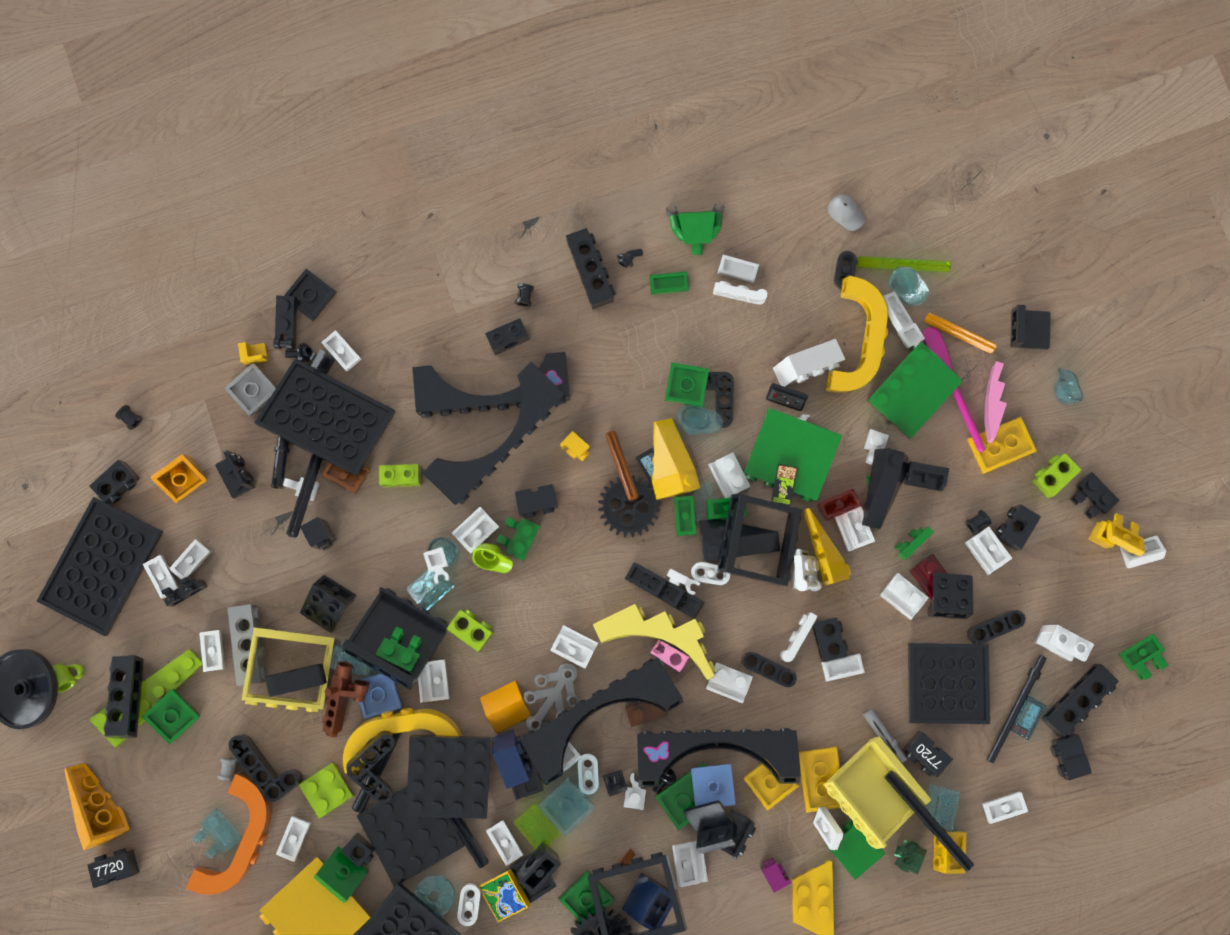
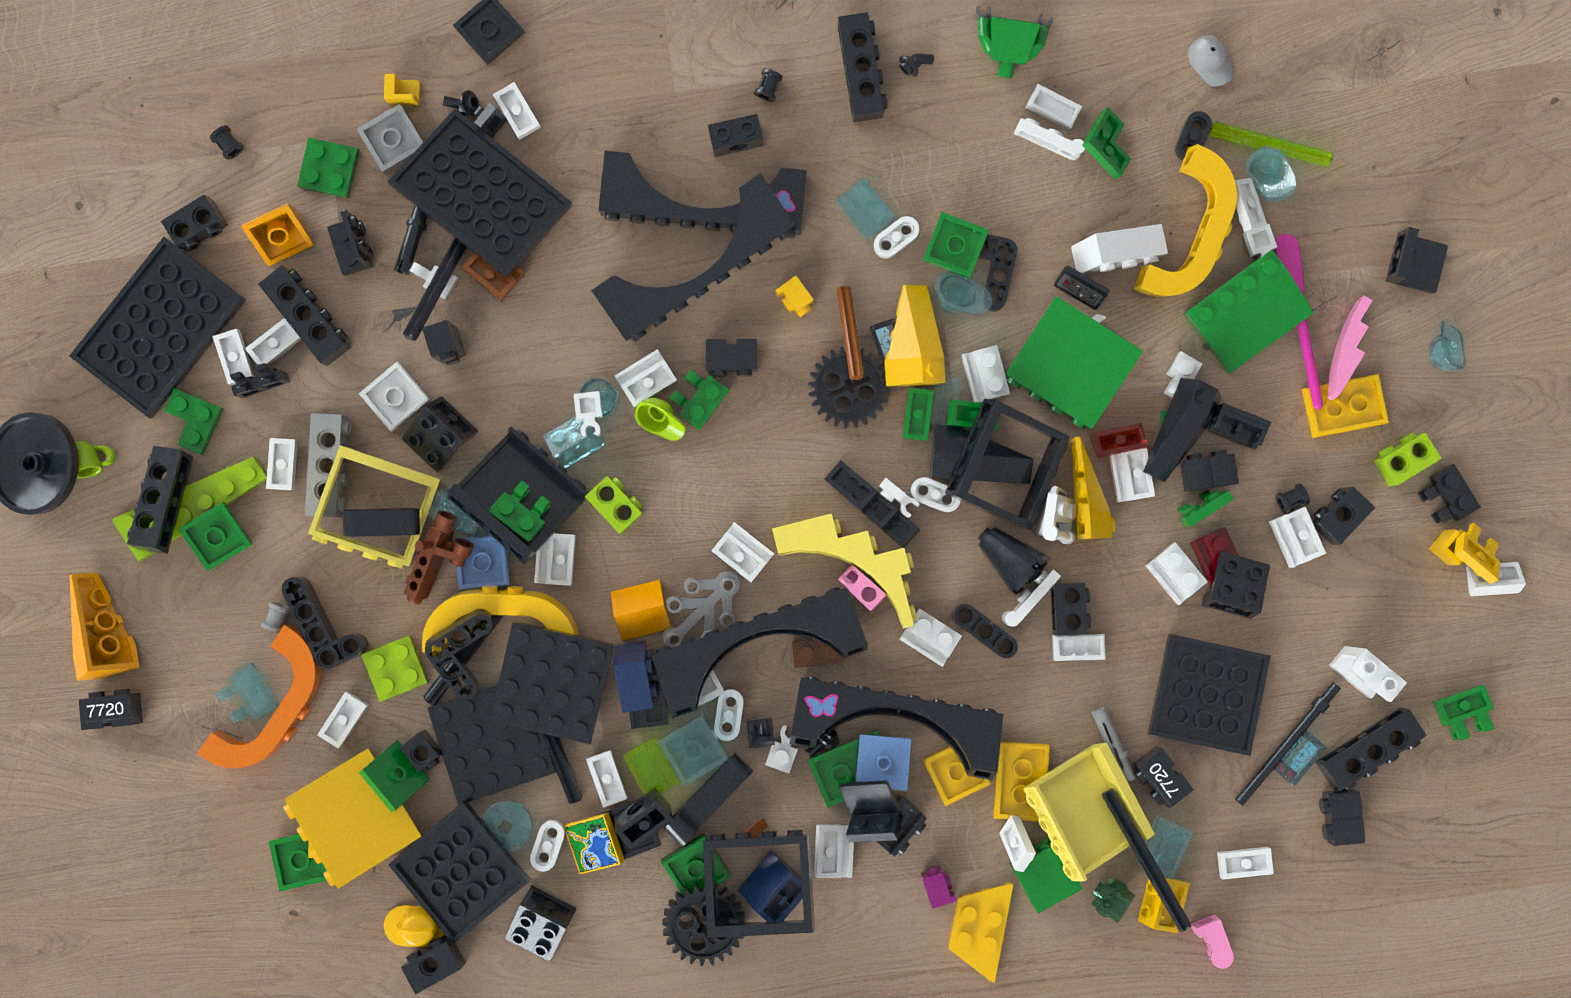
camera: 10 degrees right, 5 degrees up
(144, 630) = (200, 418): none -> green plate
(185, 519) = (276, 288): none -> black brick
(208, 421) = (328, 168): none -> green plate
(285, 322) = (451, 58): black plate -> none
(288, 582) = (395, 396): none -> white tile
(400, 475) = (562, 288): lime brick -> none
(585, 843) = (707, 799): none -> black beam
(614, 371) = (865, 209): none -> clear light blue plate
(641, 387) = (895, 237): none -> white plate
(669, 283) = (959, 107): green tile -> none
(778, 610) = (1012, 558): none -> black cone
(779, 288) = (1102, 145): none -> green plate
(784, 484) = (1054, 399): tile -> none
(912, 514) = (1209, 472): none -> black brick
(960, 333) = (1324, 249): light orange axle -> none
(999, 878) = (1214, 935): none -> bright pink leg
(1004, 623) = (1297, 635): black beam -> none

